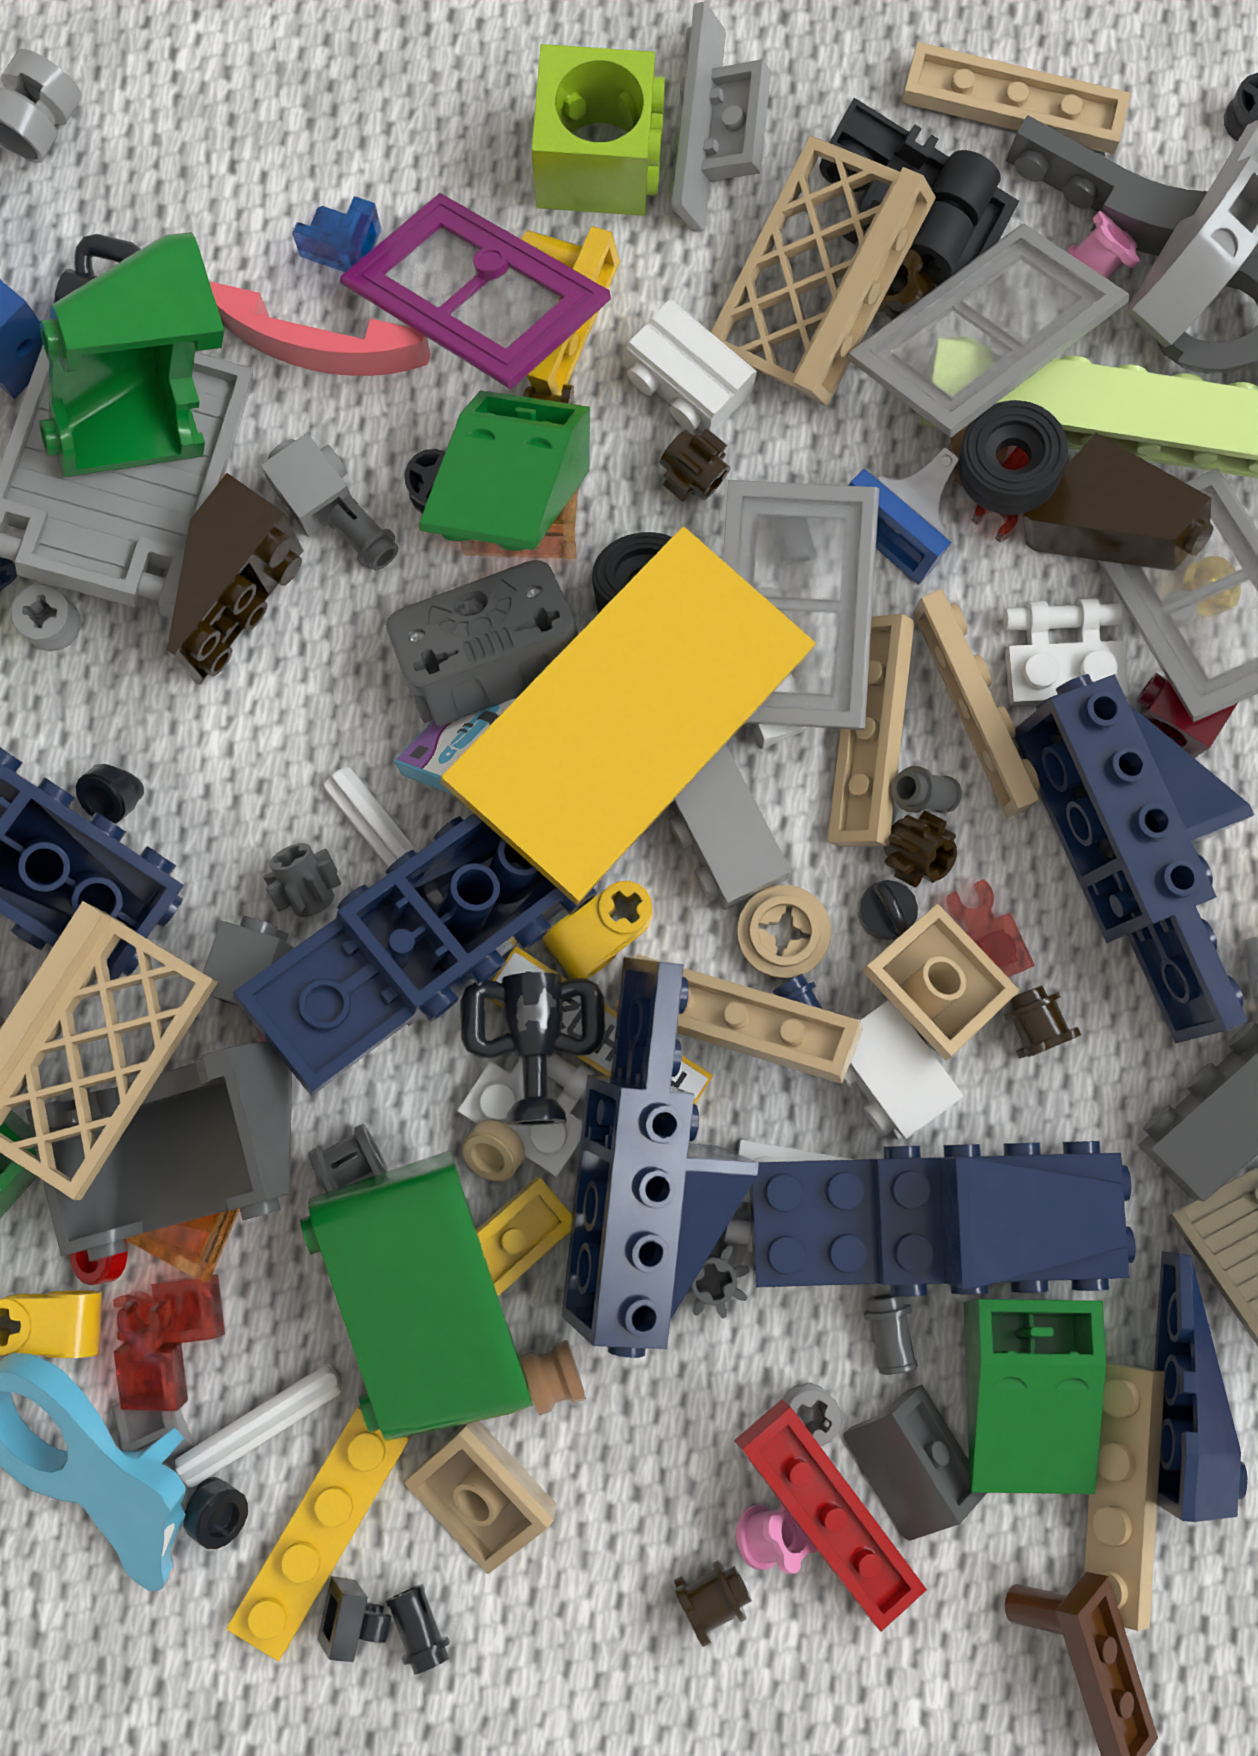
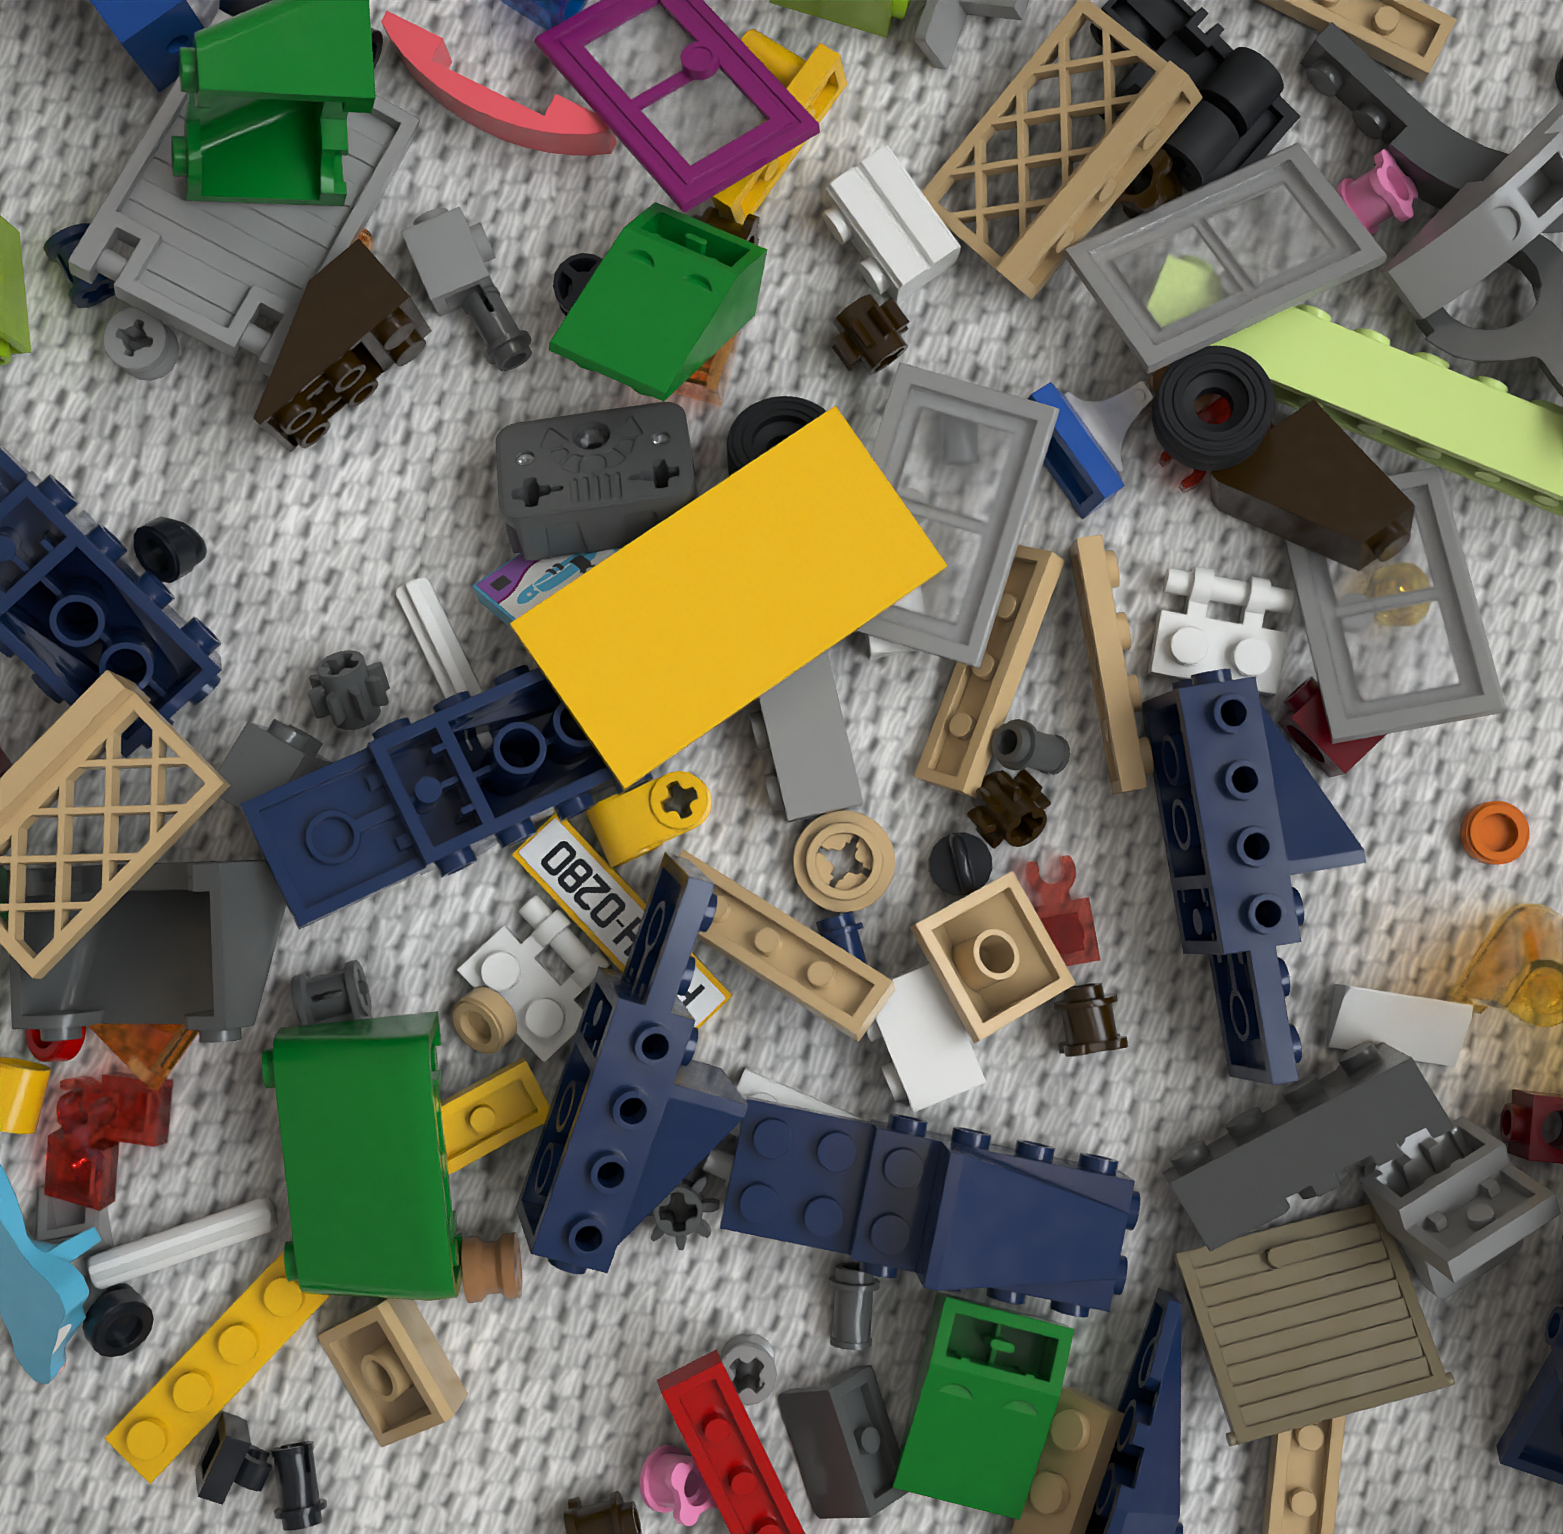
camera: 20 degrees right, 5 degrees up
(533, 1031) = (552, 909): black piece -> none

